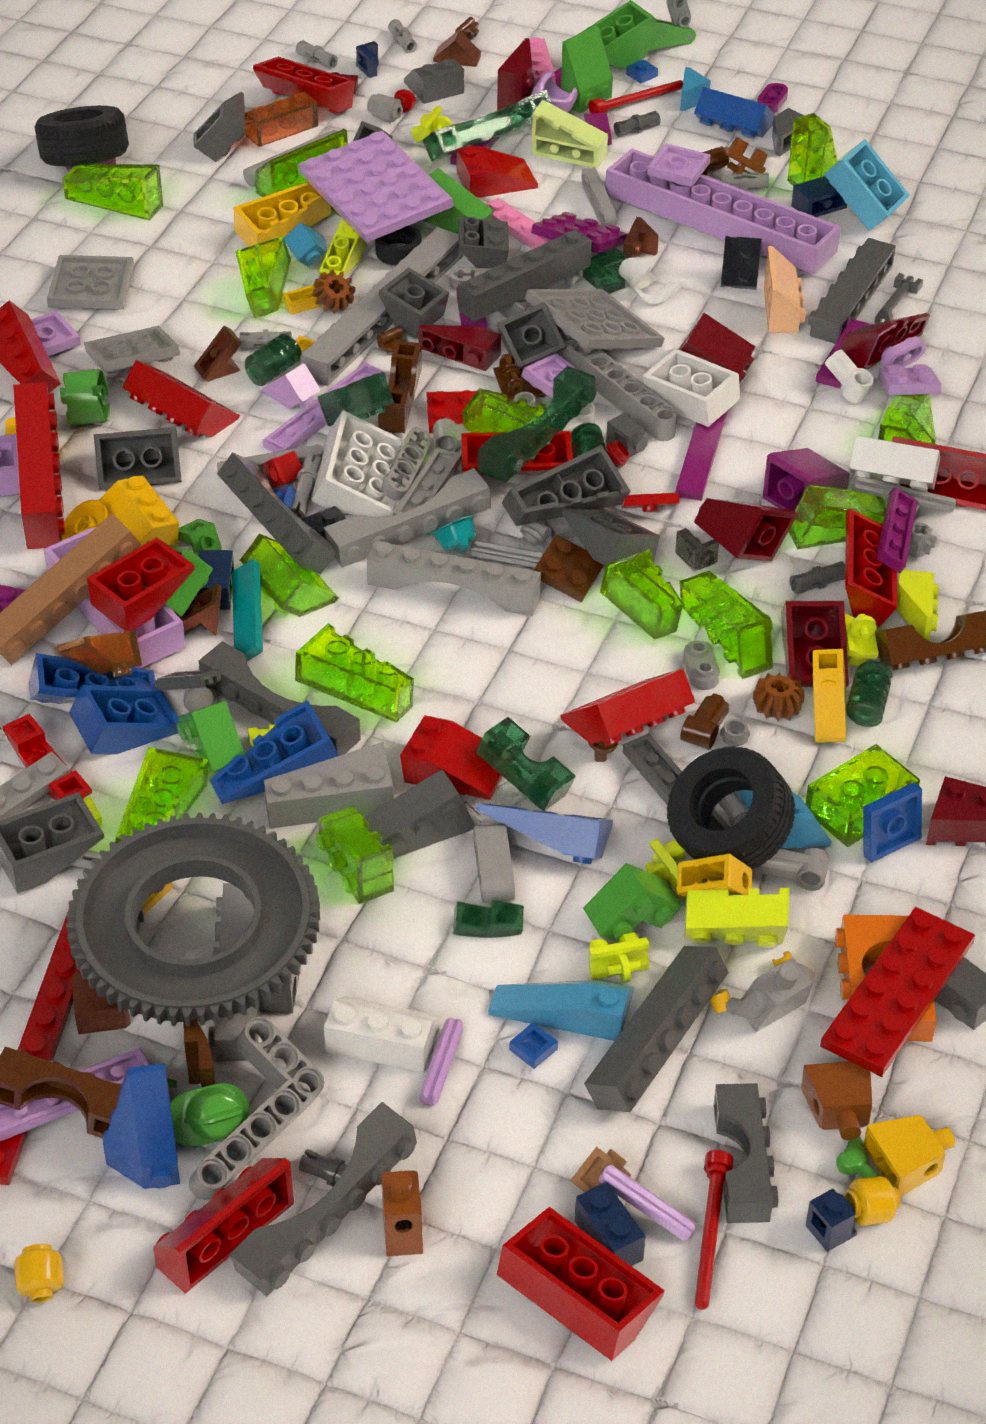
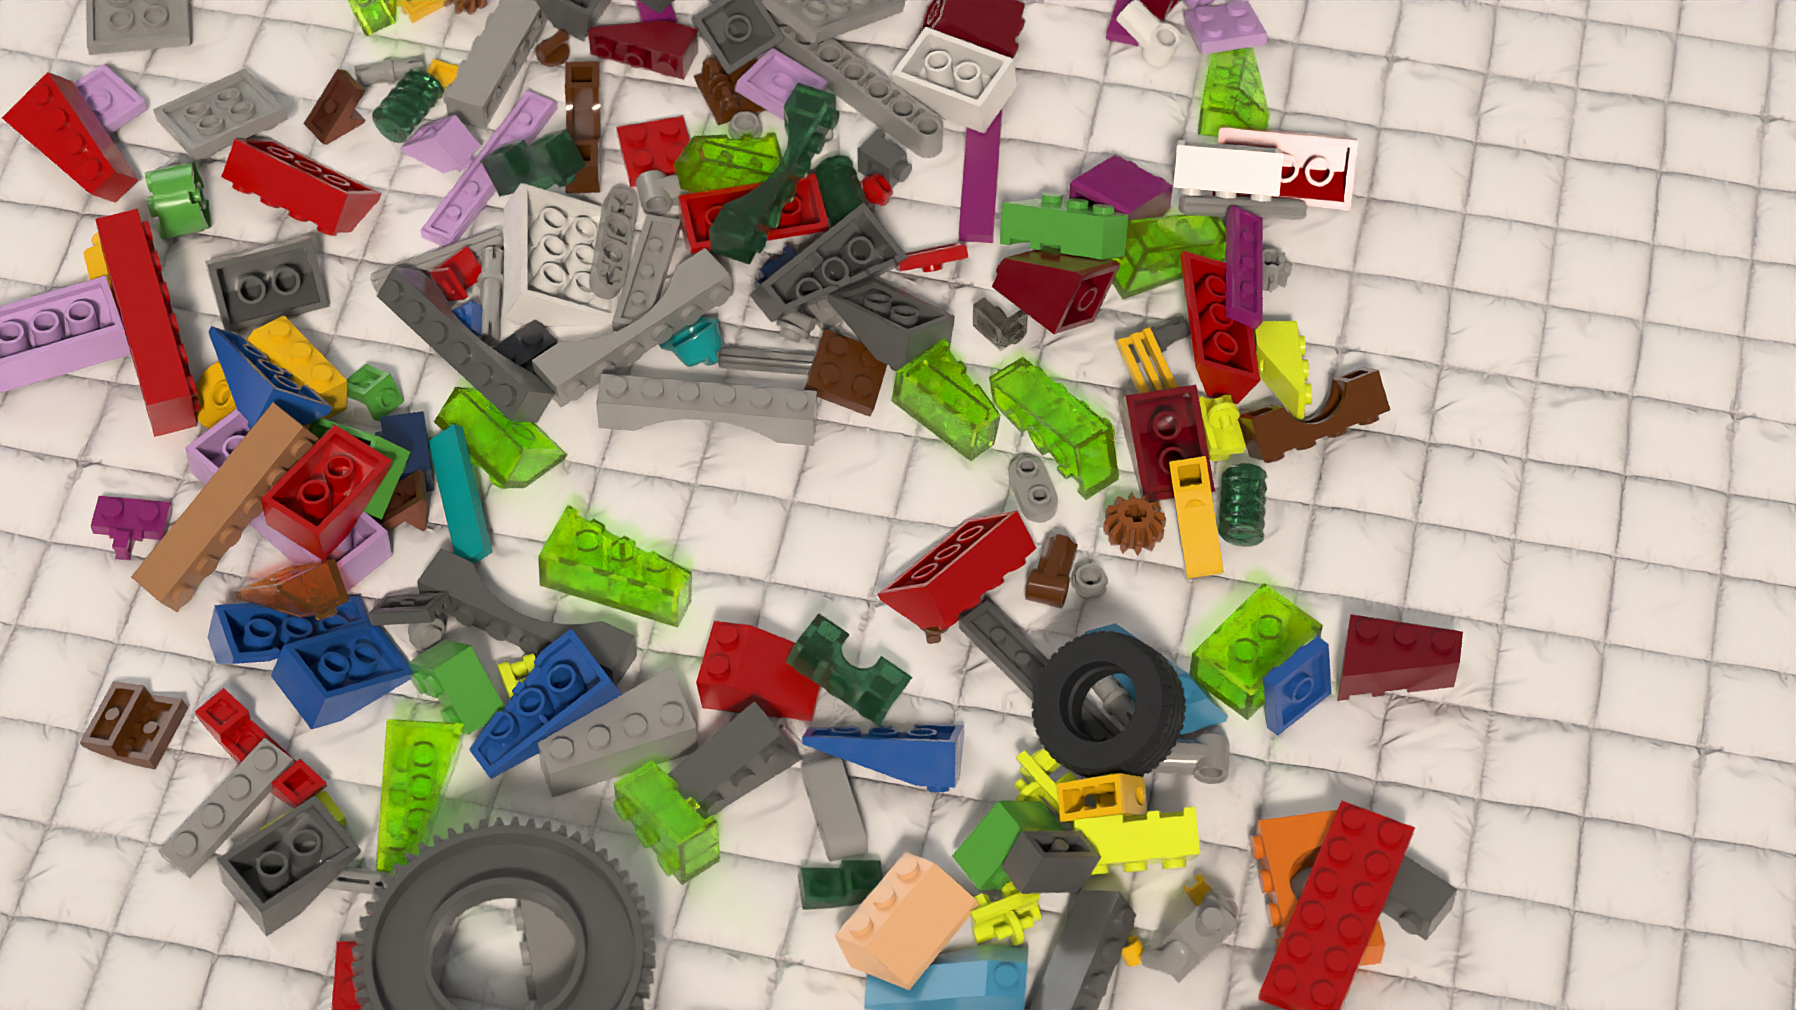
camera: 10 degrees left, 10 degrees up
(103, 501) = (260, 383): none -> blue wedge
(533, 948) = (905, 921): none -> light nougat slope
(661, 917) = (1051, 862): none -> dark grey brick
(758, 486) = (1065, 226): none -> bright green wedge
(815, 580) = (1156, 355): none -> yellow tile

